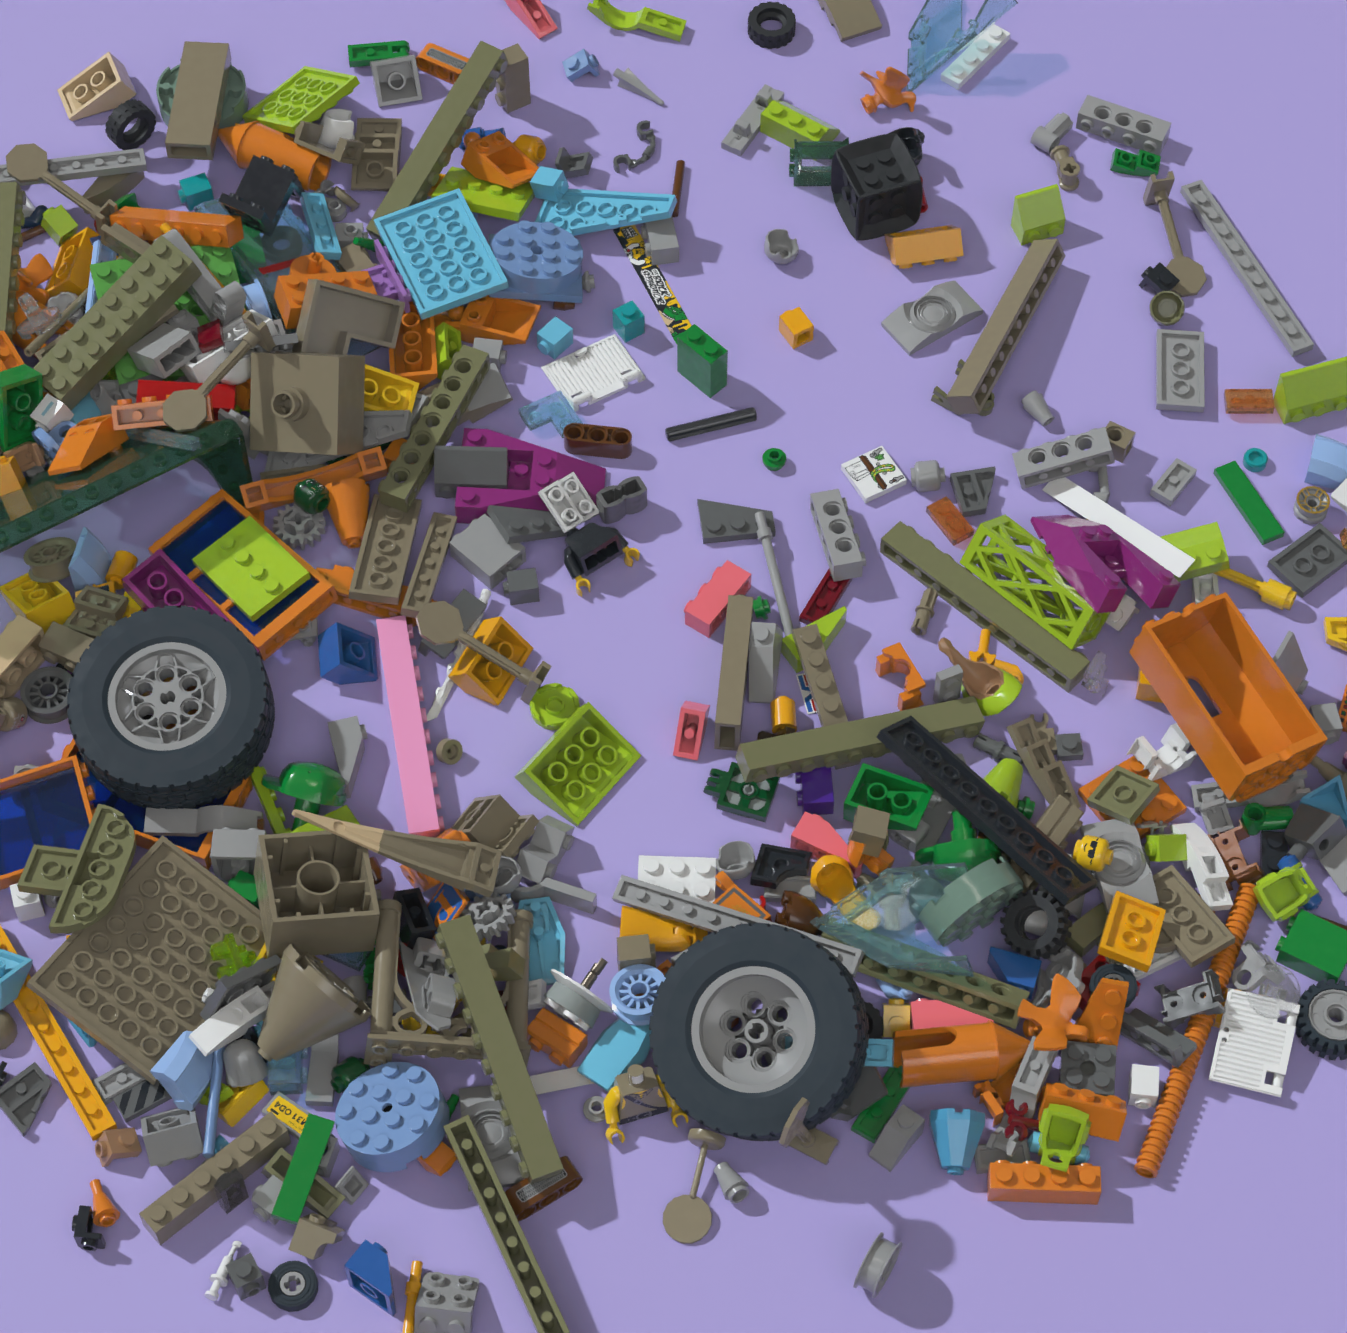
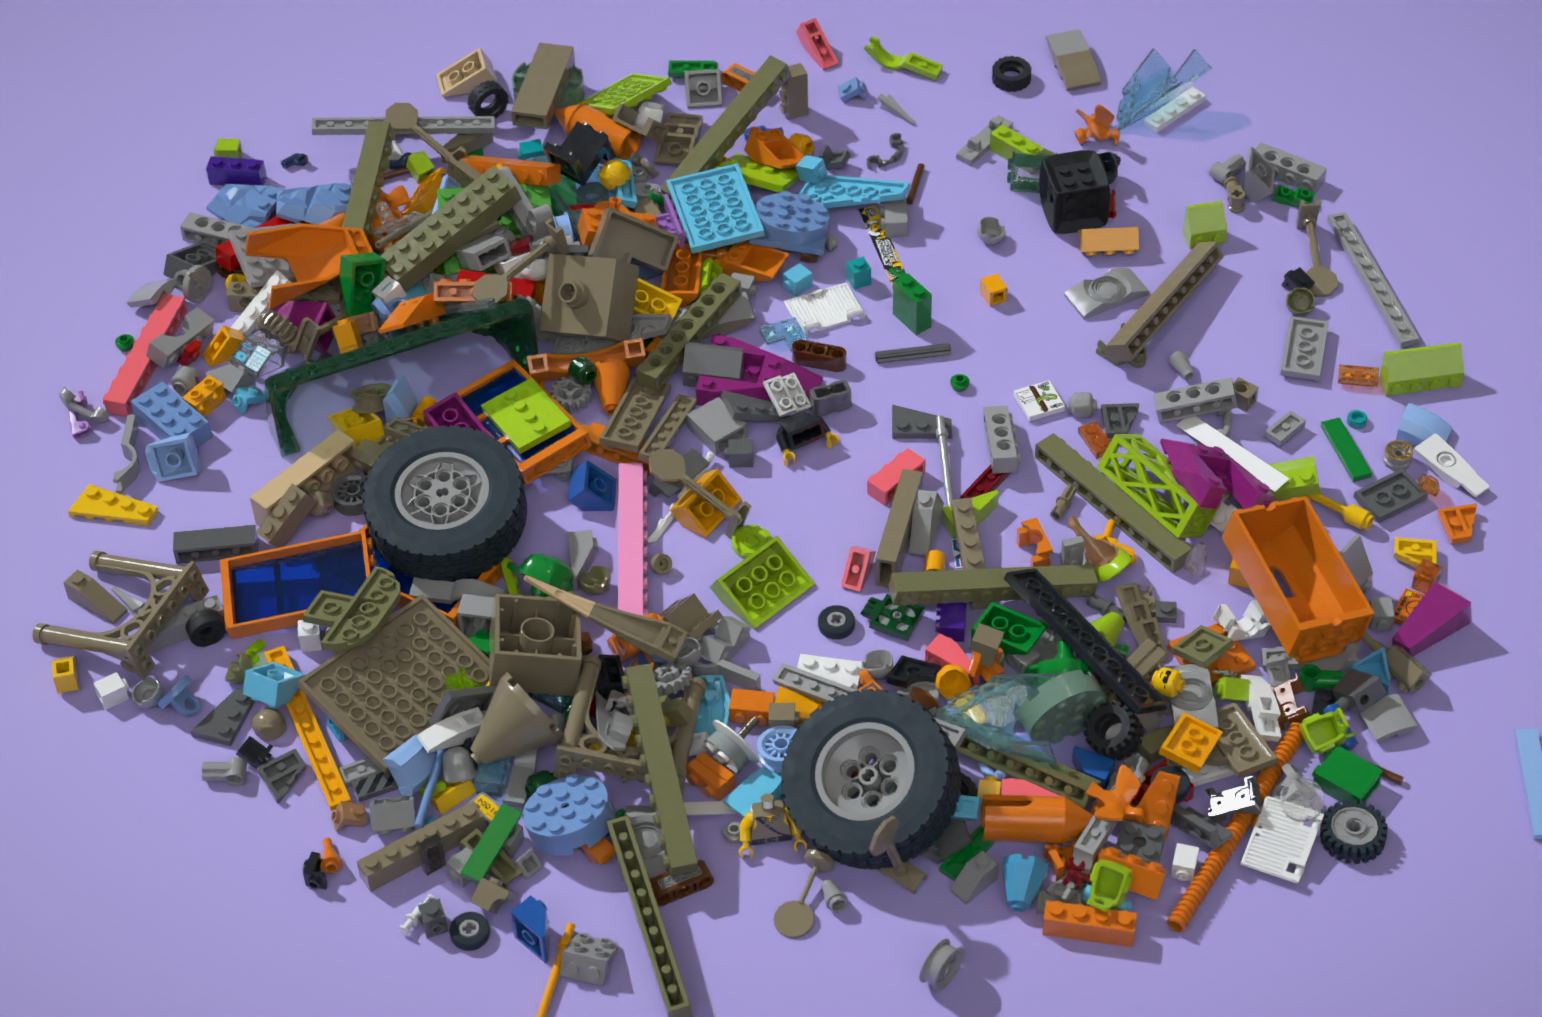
camera: 10 degrees right, 10 degrees down
(307, 218) = (614, 174): none -> yellow hair
(372, 783) = (596, 580): none -> olive hair
(591, 936) = (749, 704): none -> orange brick
(675, 794) = (836, 613): none -> black bush
(761, 607) = (930, 484): green plate -> none
(1091, 142) = (1258, 176): none -> light grey slope

